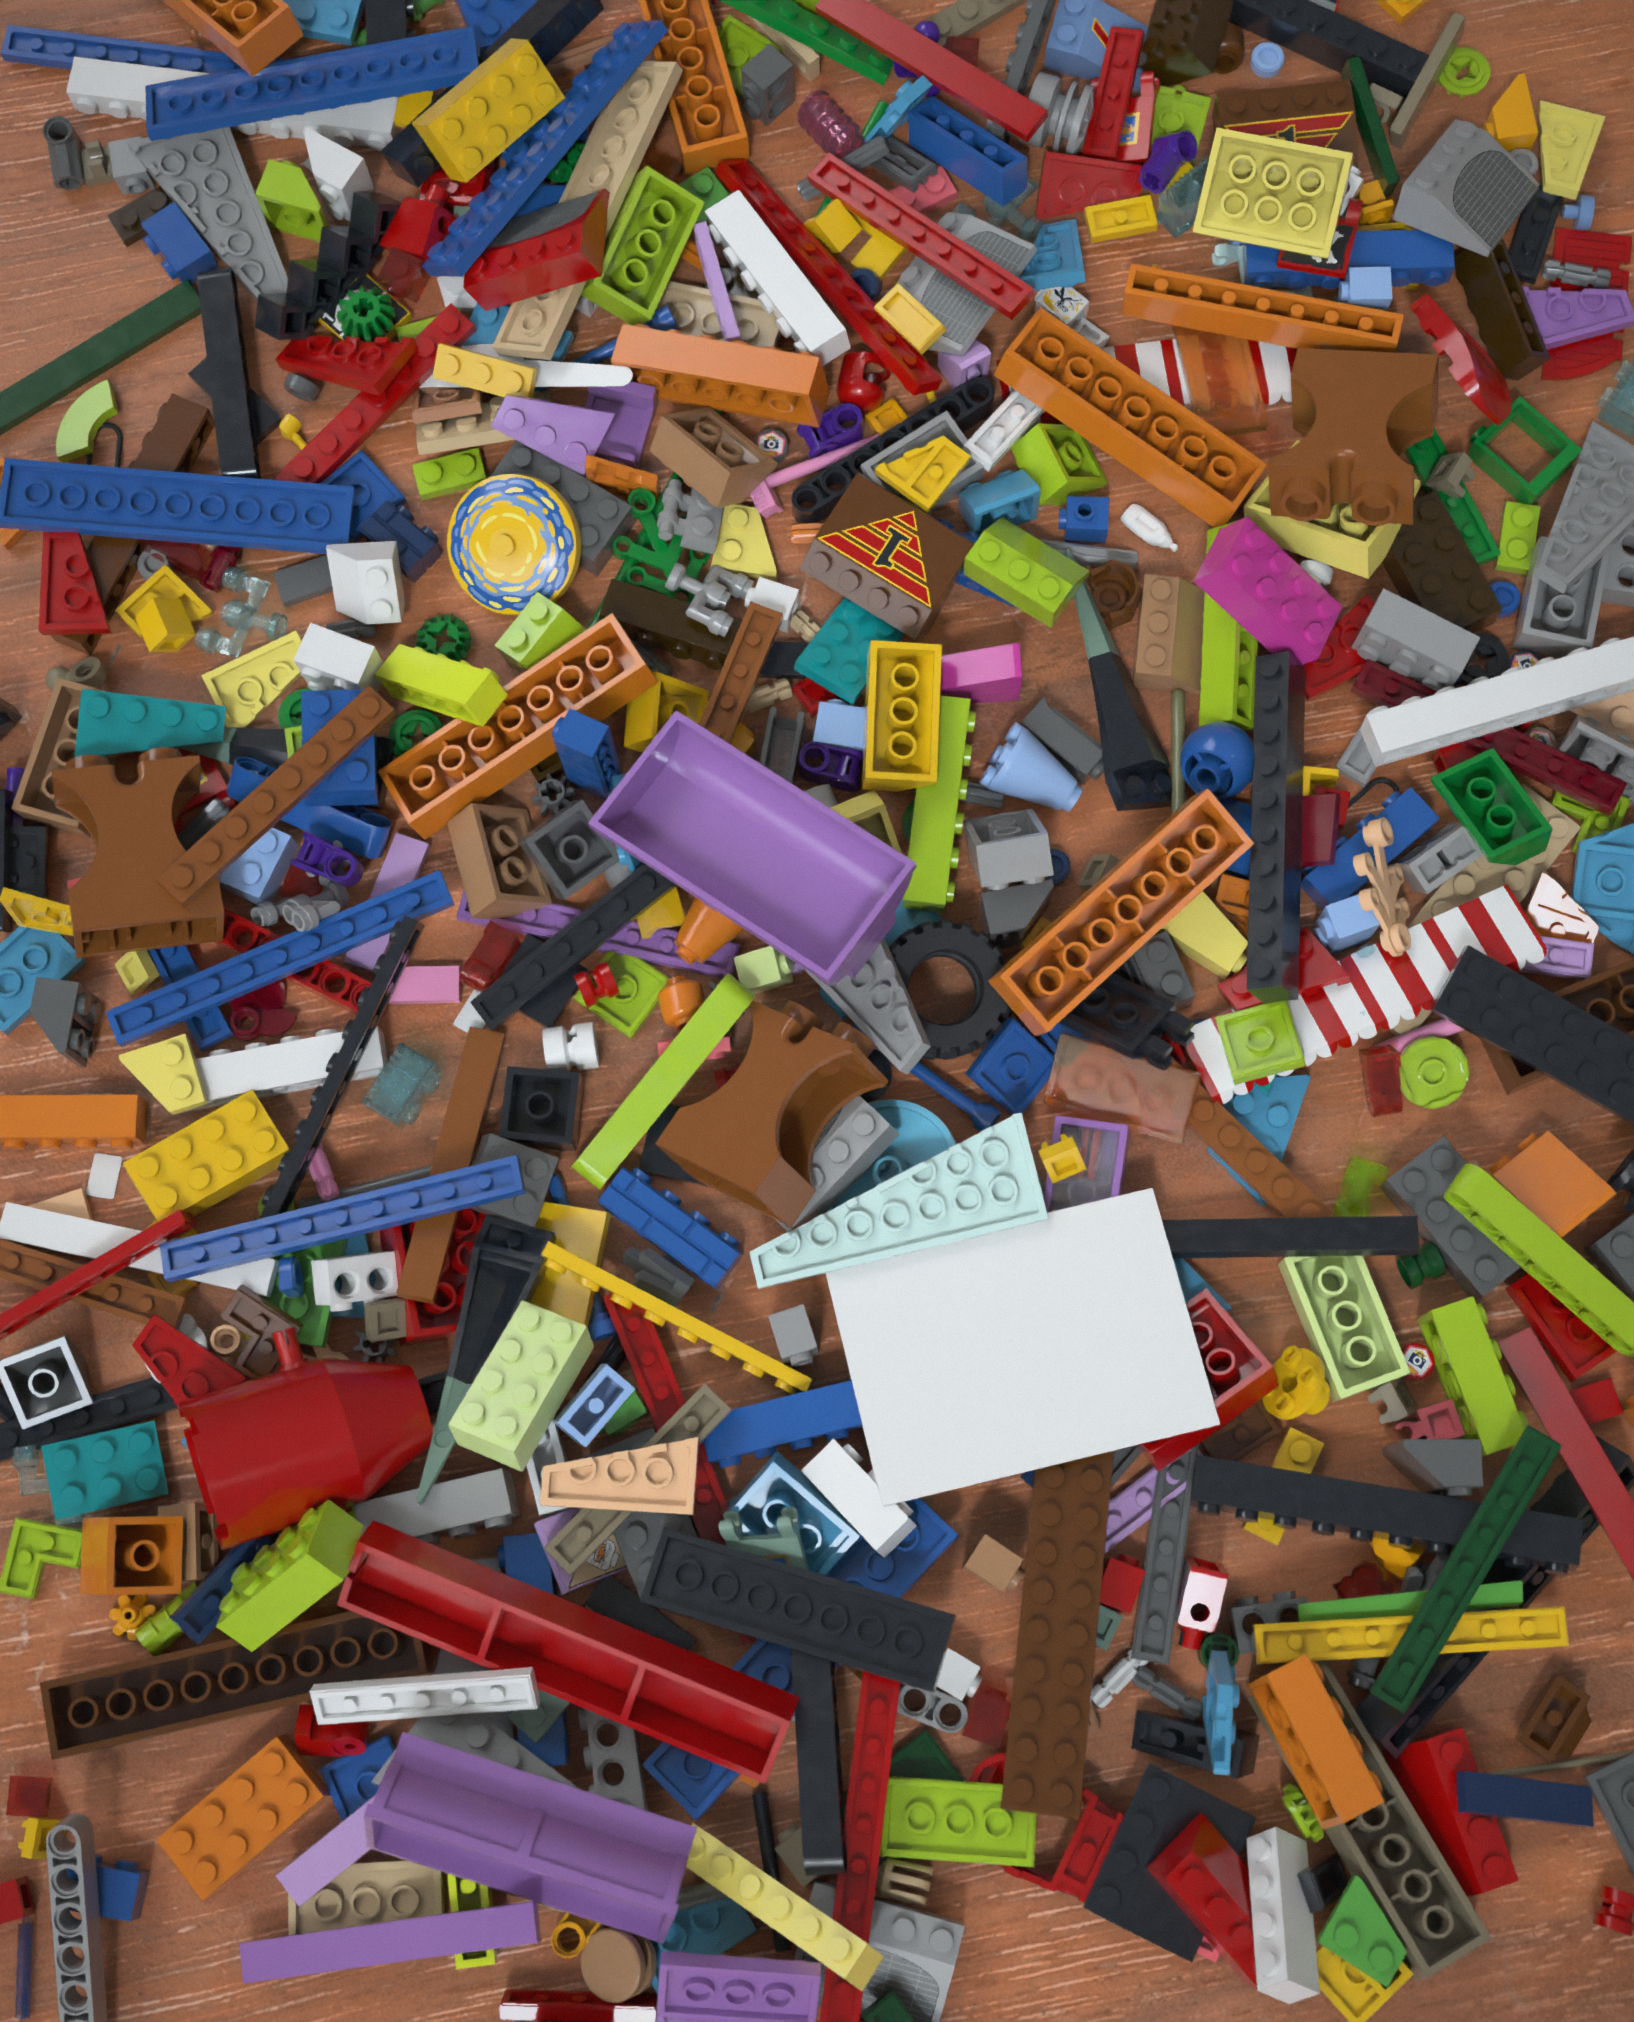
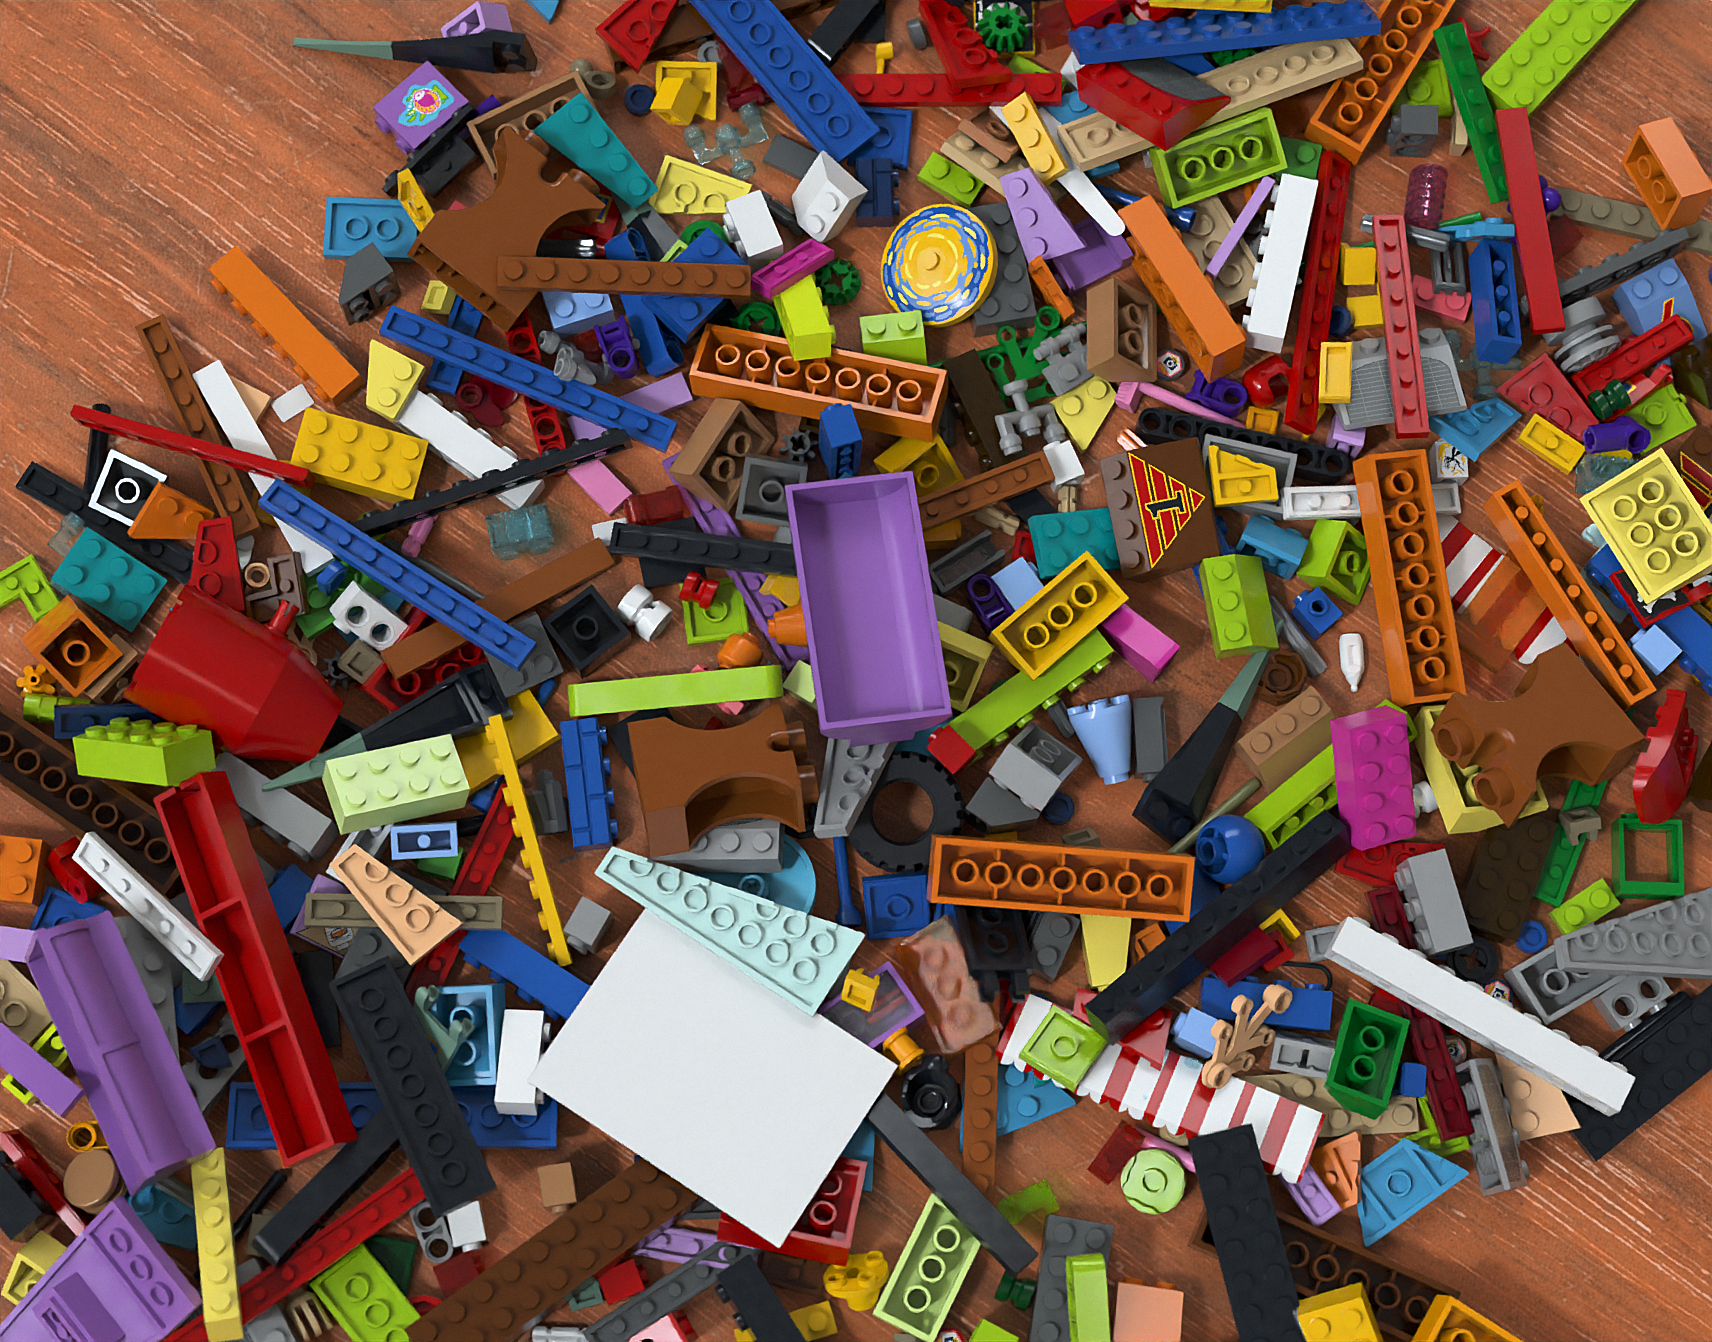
camera: 35 degrees right, 0 degrees up
(100, 1367) = (169, 515): none -> orange wing
(133, 656) = (639, 100): none -> dark blue tile
(400, 659) = (791, 268): none -> dark pink tile
(604, 1758) = (212, 1054): none -> dark blue tile
(930, 901) = (951, 749): none -> red brick
(1131, 139) = (1609, 399): none -> dark green wheel
(1141, 1173) = (902, 1051): none -> light orange piece
(1196, 1183) = (931, 1094): none -> black piece
(1542, 791) = (1409, 1081): none -> blue slope

